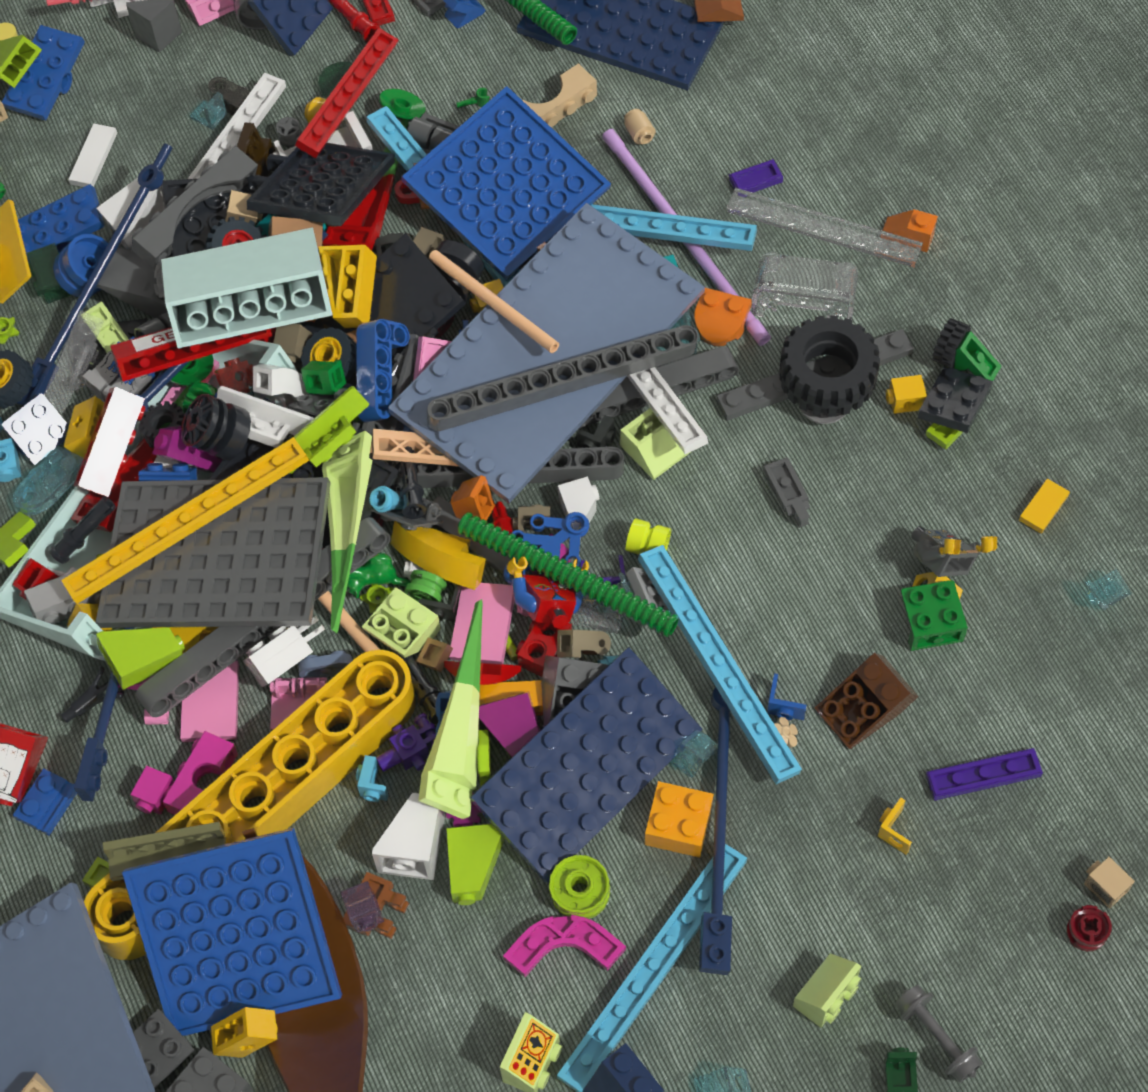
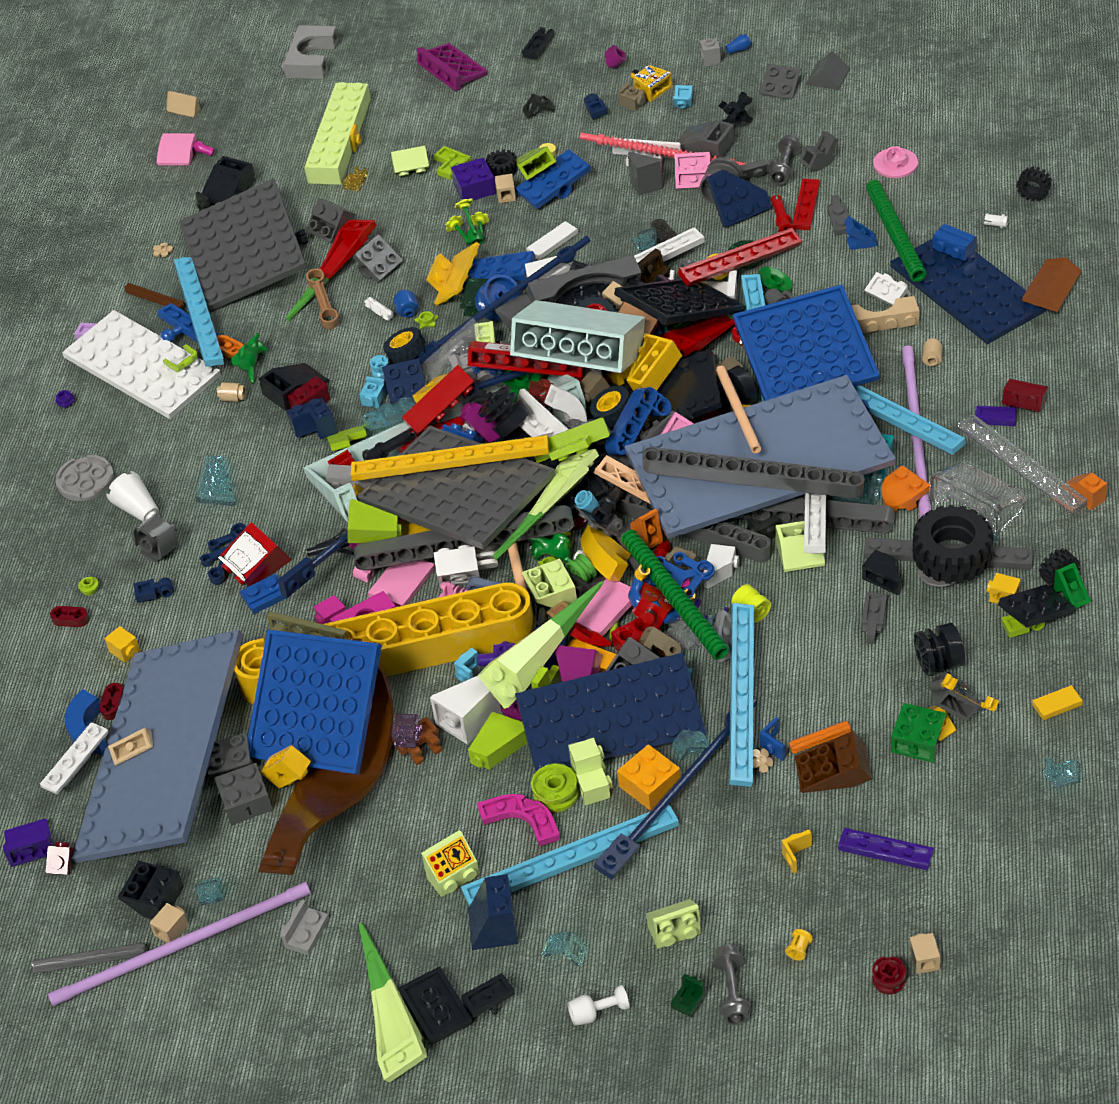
camera: 35 degrees right, 15 degrees down
(323, 377) = (594, 409): green brick -> none
(538, 66) = (886, 289): none -> white bracket
(605, 842) = (589, 771): none -> yellowish green brick
(766, 431) = (882, 572): none -> black slope
(776, 140) = (1024, 395): none -> dark red brick
(827, 671) = (819, 737): none -> orange axle
(892, 502) = (939, 648): none -> black wheel
(974, 953) = (799, 944): none -> yellow bush

